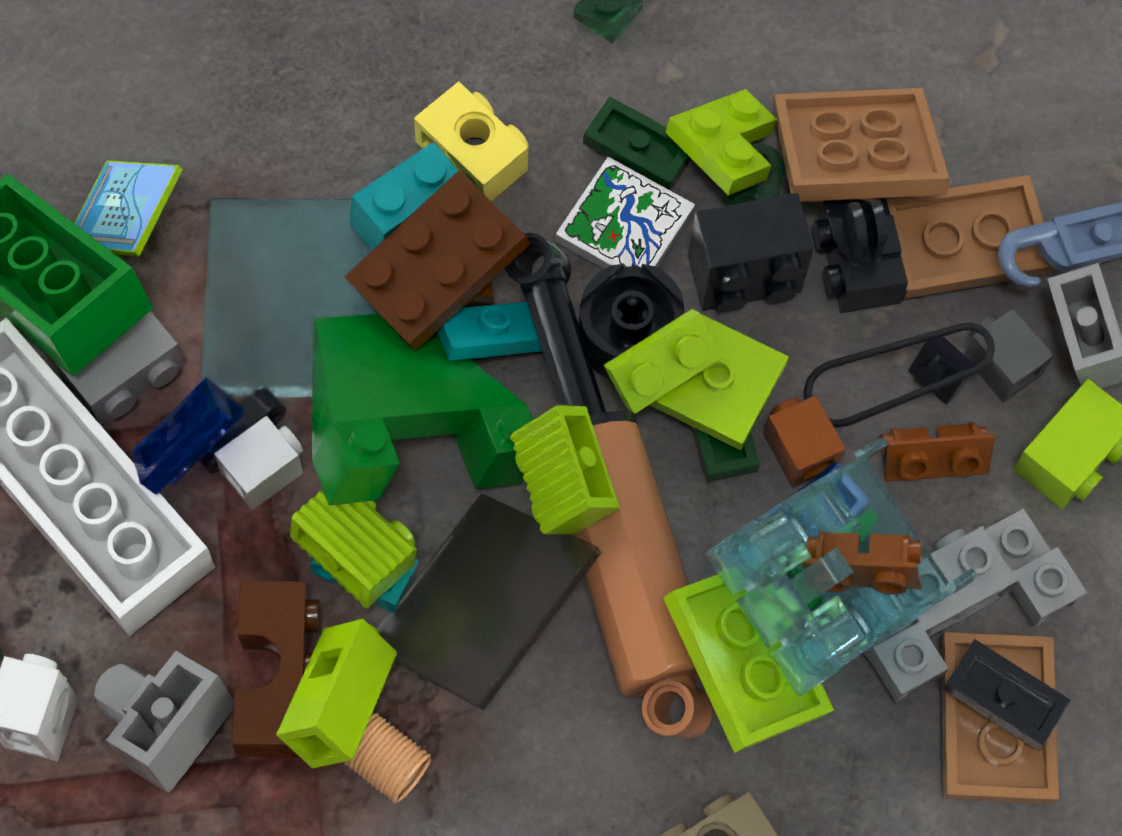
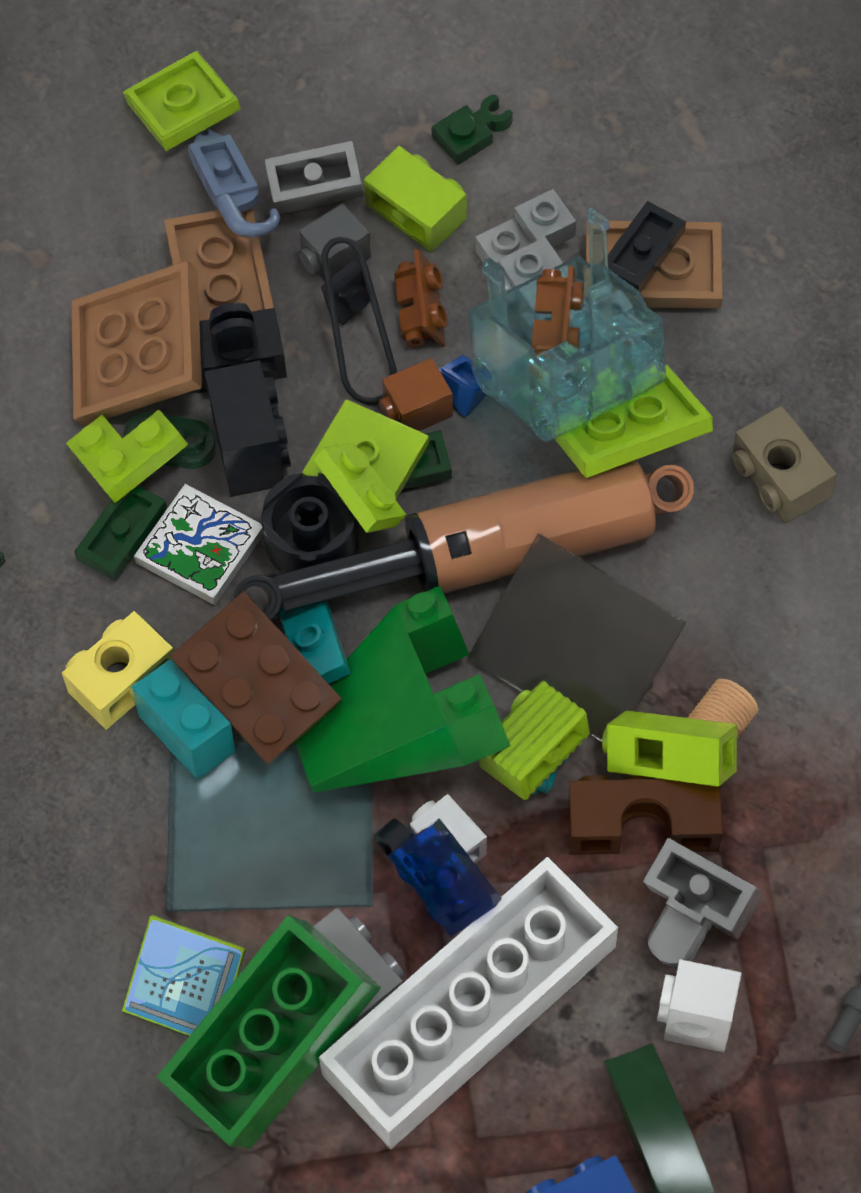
camera: 85 degrees left, 5 degrees down
(564, 470) = (474, 553): lime brick -> none

